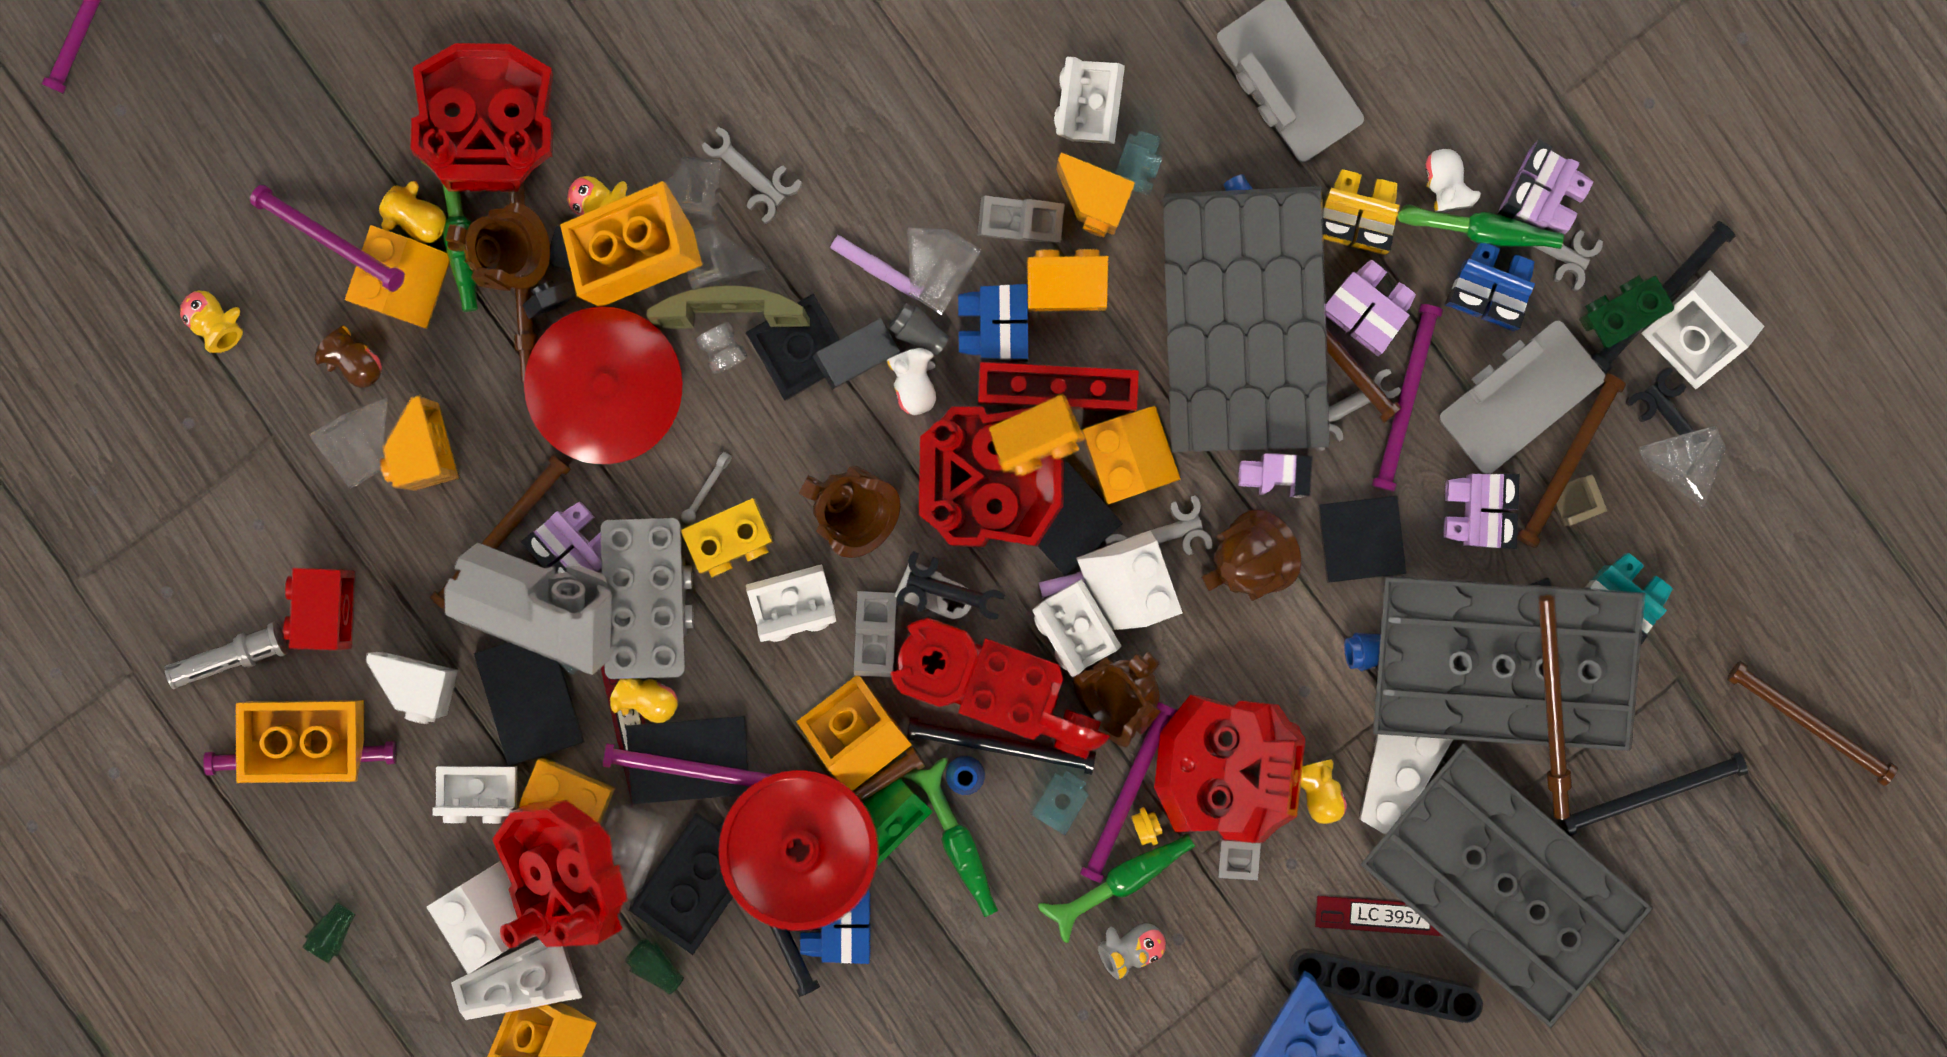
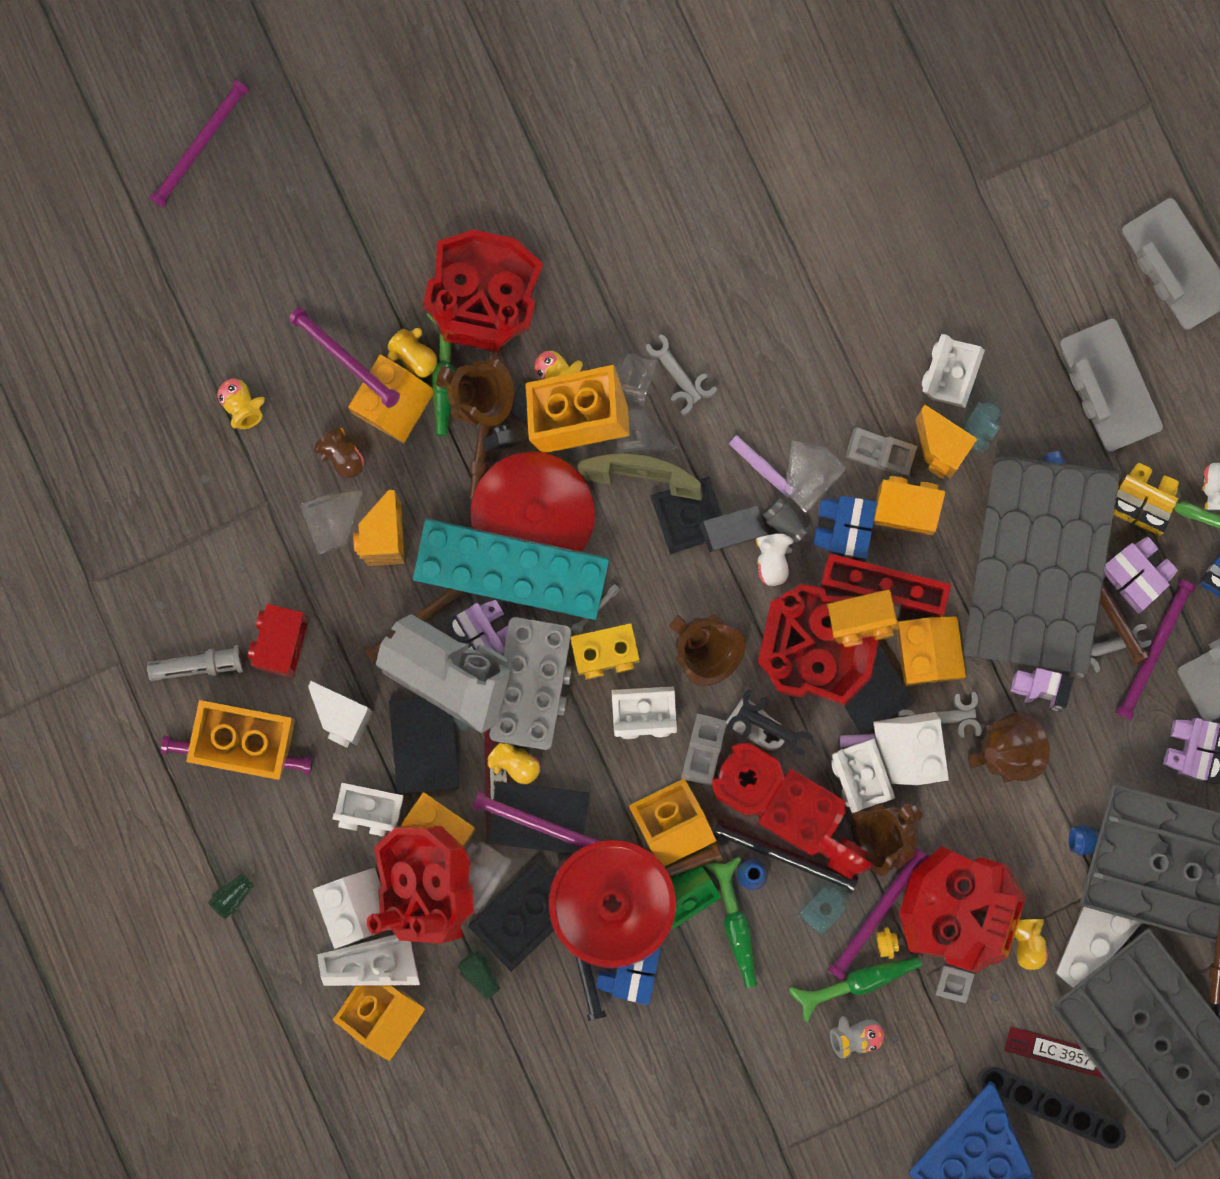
camera: 15 degrees right, 5 degrees down
(589, 460) = (510, 569): none -> teal plate
(718, 339) = (628, 497): clear wheel -> none
(1362, 539) = (1099, 752): black tile -> none

